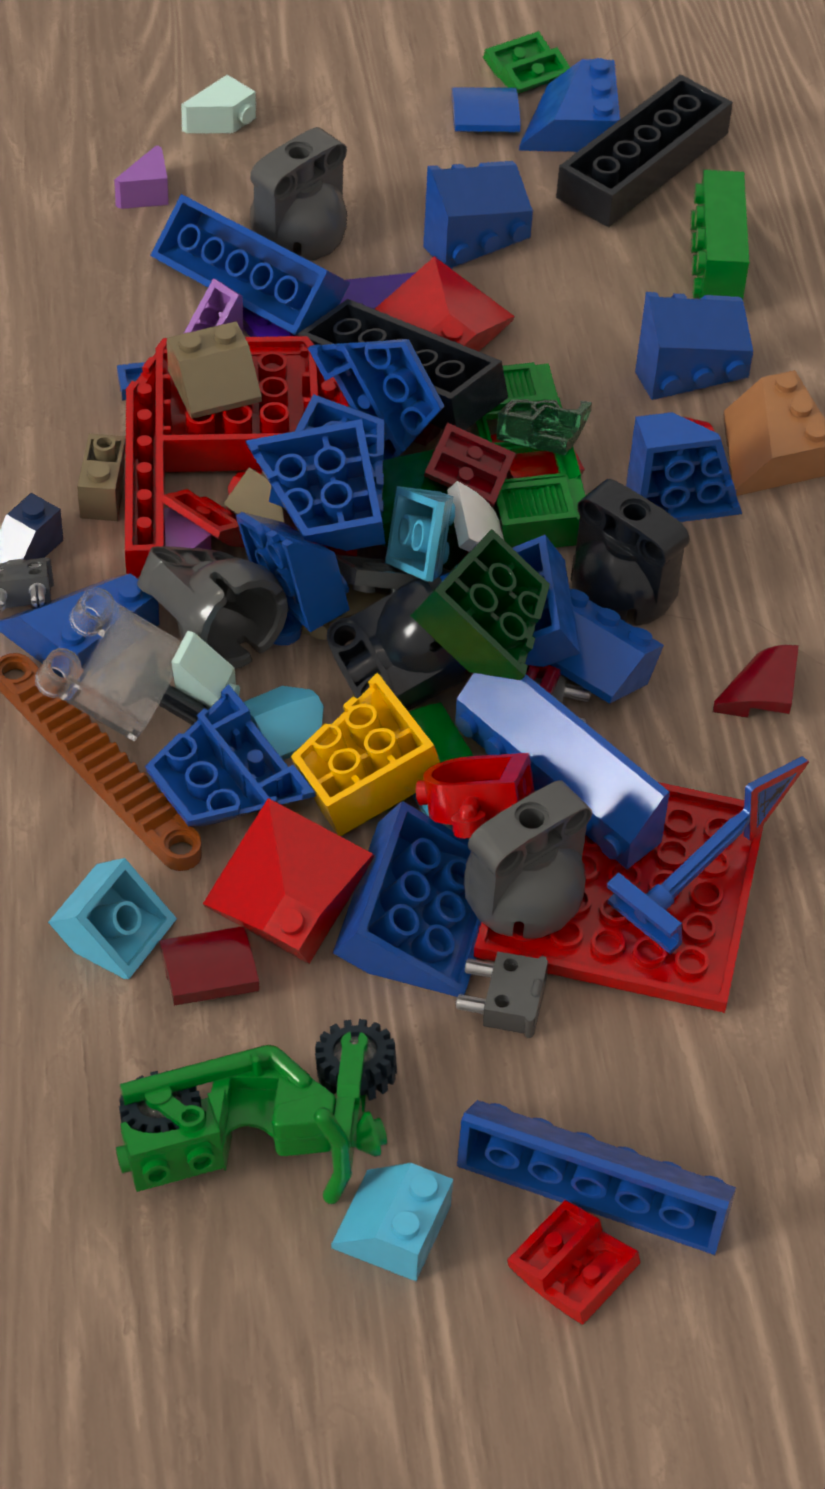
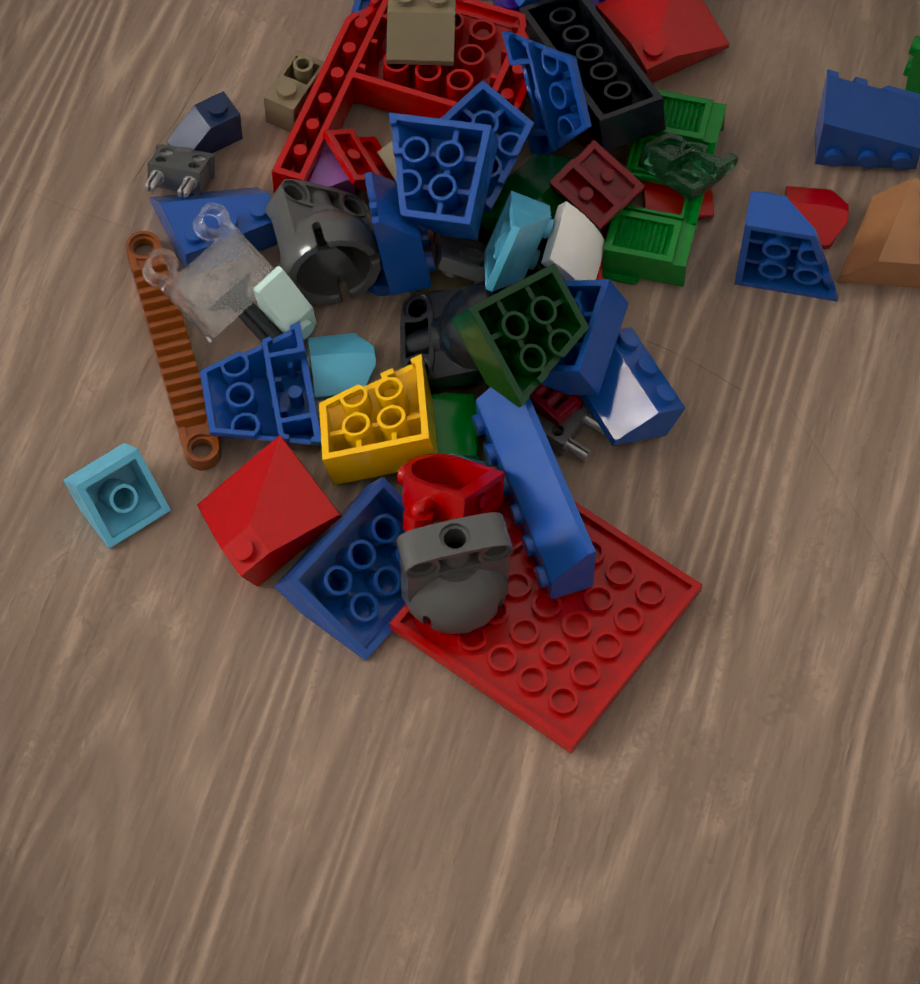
camera: 25 degrees right, 10 degrees up
(178, 1135) = (85, 699): green piece -> none
(209, 965) = (173, 560): dark red slope -> none
(395, 1218) = (214, 829): medium azure slope -> none
(513, 992) = (402, 673): dark grey piece -> none
(573, 1261) = (336, 917): red slope -> none
(594, 1175) = (386, 852): blue slope -> none
(627, 552) = (693, 316): black piece -> none
(649, 909) = (676, 588): blue piece -> none
(762, 684) = (762, 471): dark red slope -> none

